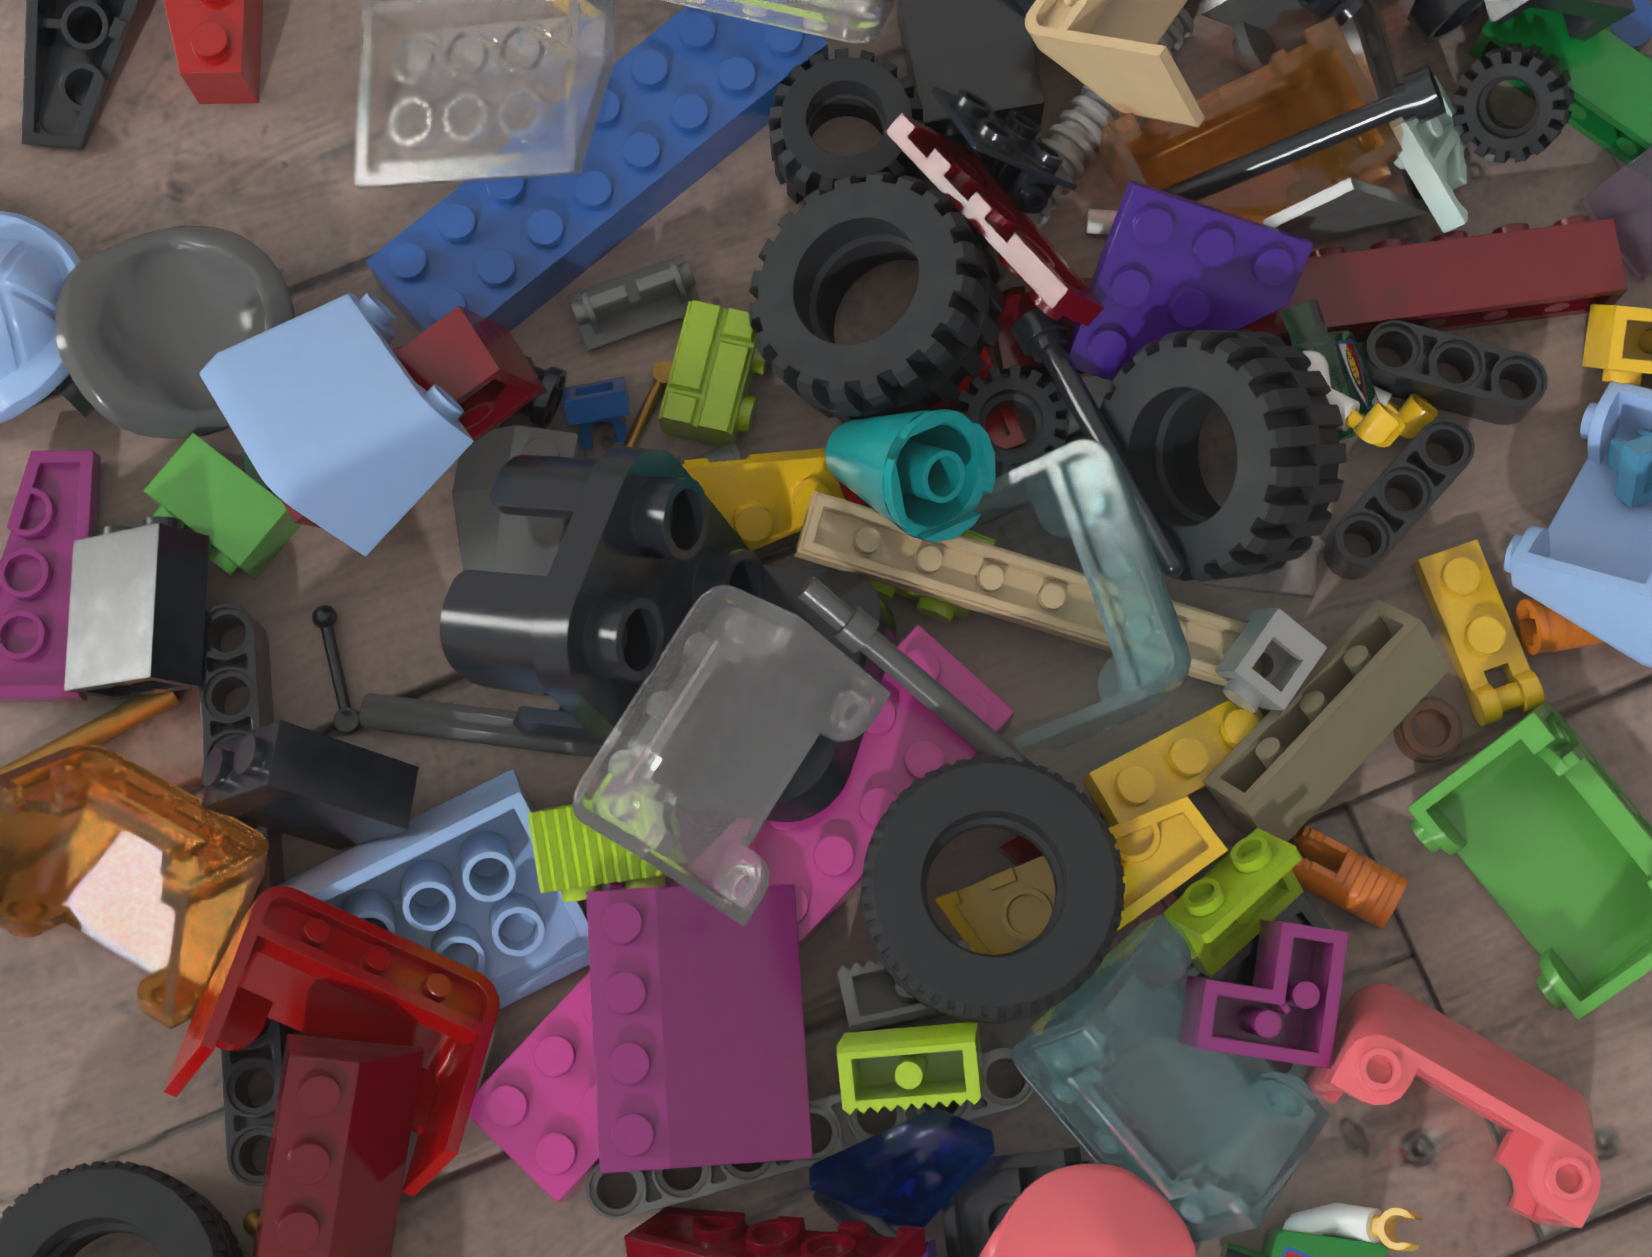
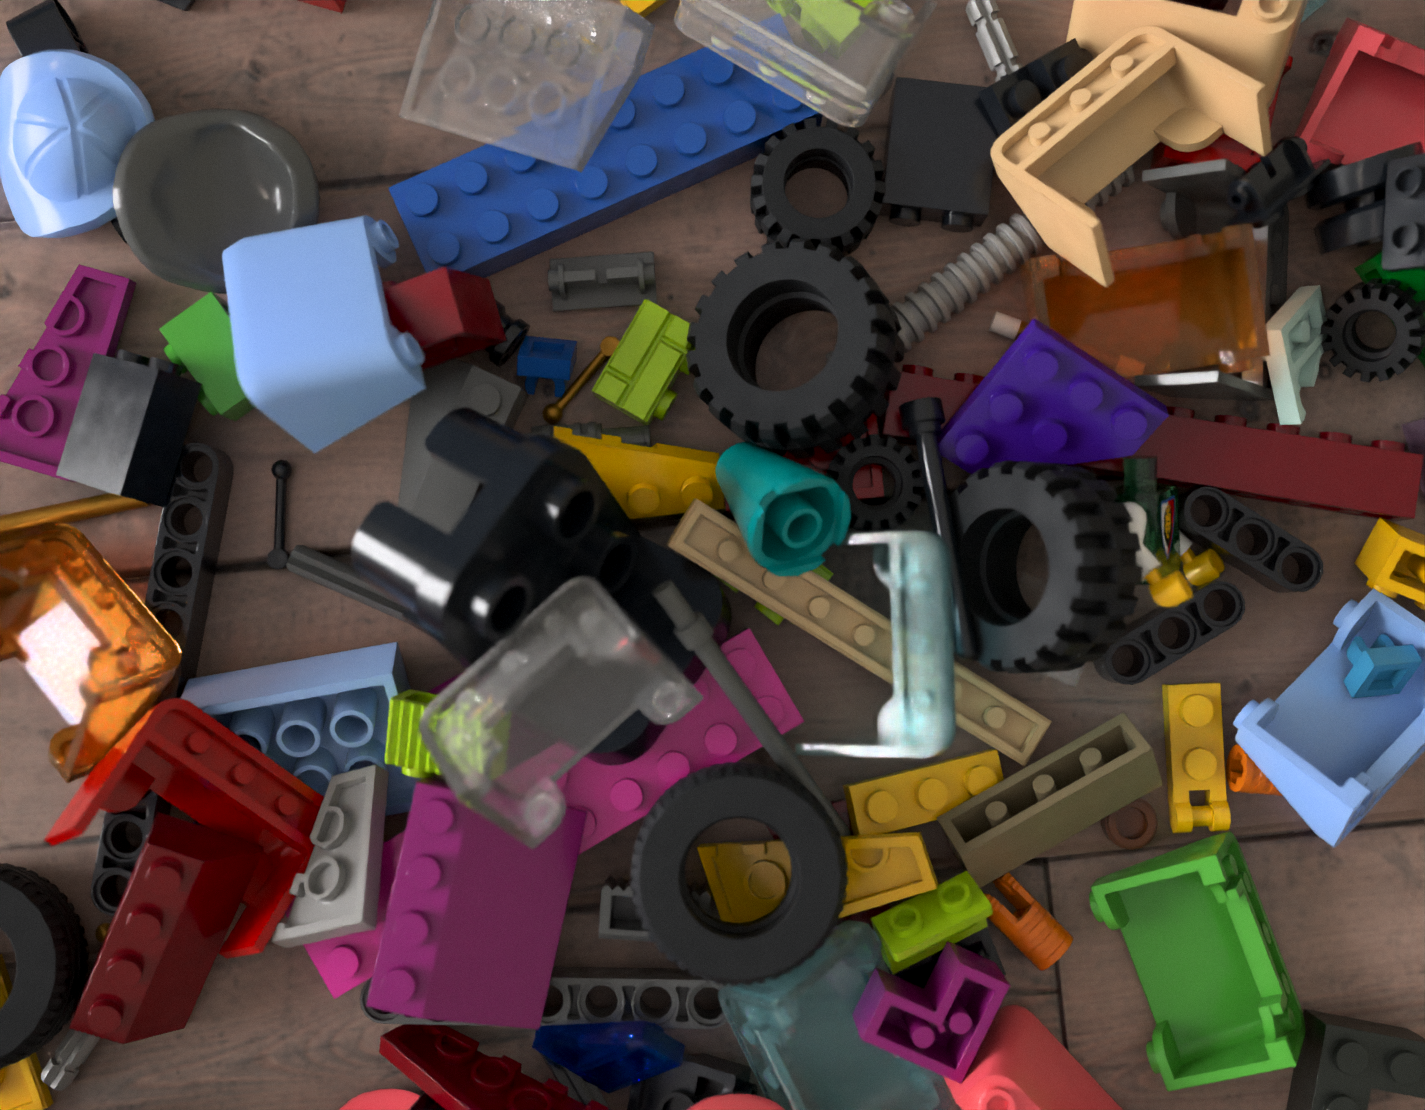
camera: 15 degrees right, 10 degrees up
(309, 786) = (225, 619): black brick -> none
(527, 1030) = (344, 870): none -> light grey wing
(910, 1067) = (632, 986): lime brick -> none
(993, 214) = (916, 310): dark red wing -> none
(1009, 148) = (946, 248): black hinge -> none
(1287, 658) = (1020, 740): light grey brick -> none
(1412, 99) = (1291, 319): black piece -> none

